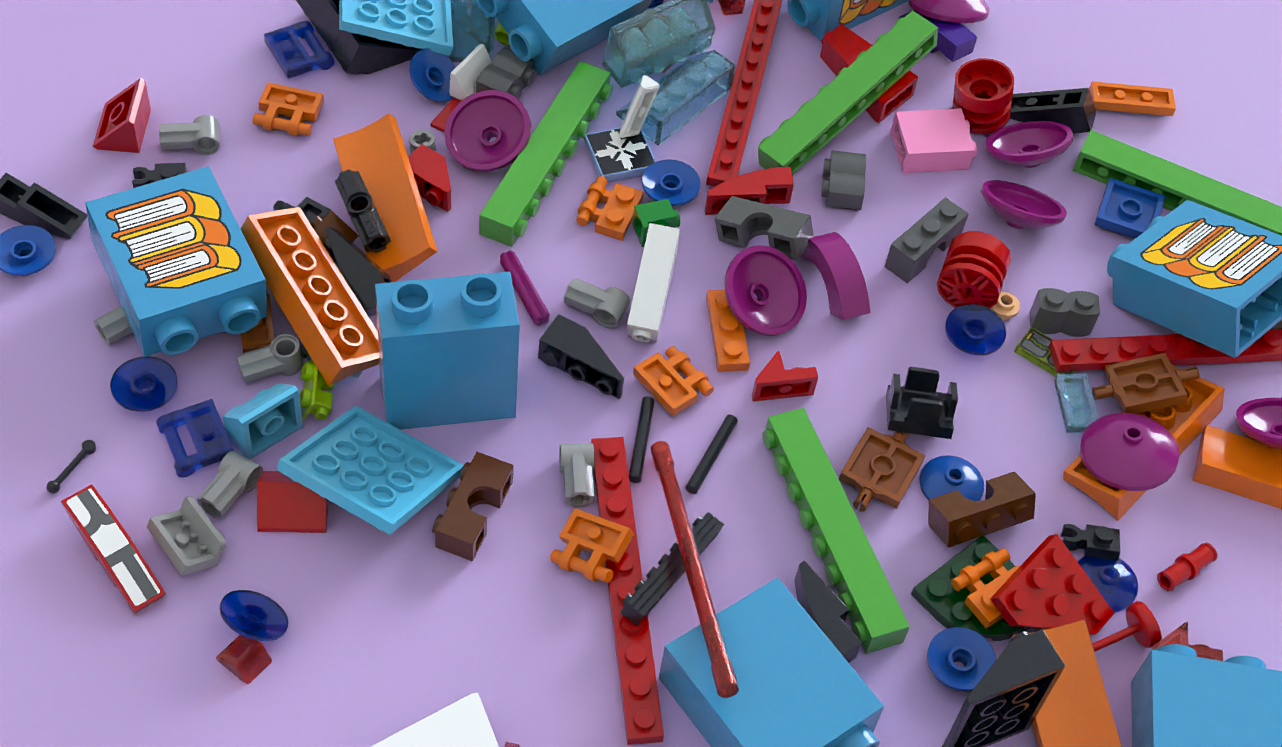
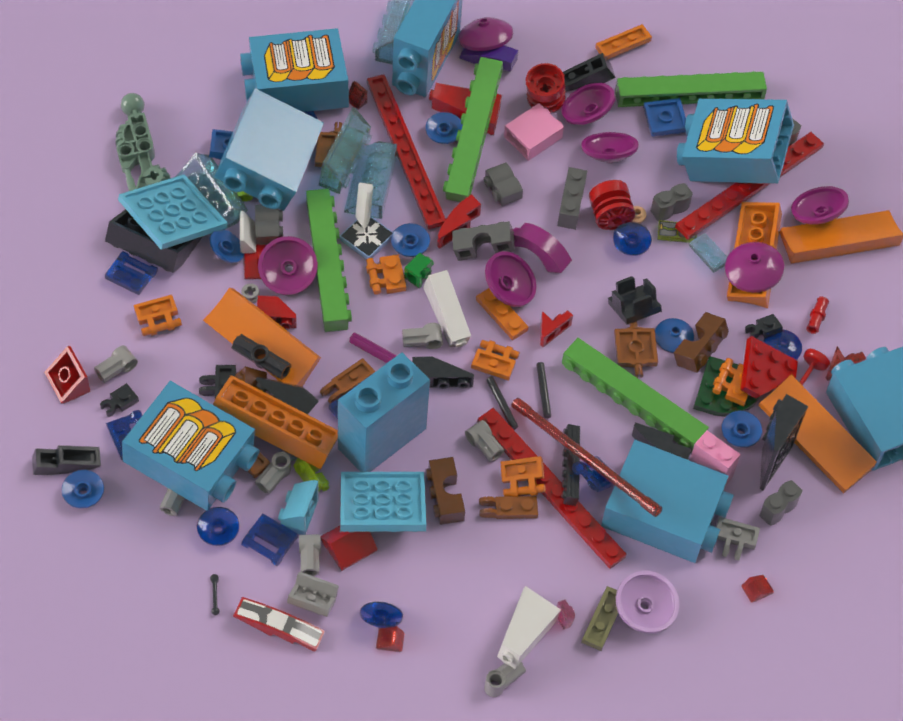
camera: 30 degrees left, 5 degrees up
(546, 578) = (509, 507): none -> dark orange hinge
(681, 596) = (593, 478): none -> clear blue plate
(810, 76) = (443, 122): none -> blue dish
(886, 670) = (715, 454): none -> bright pink brick
(1146, 384) = (738, 222): dark orange plate -> none

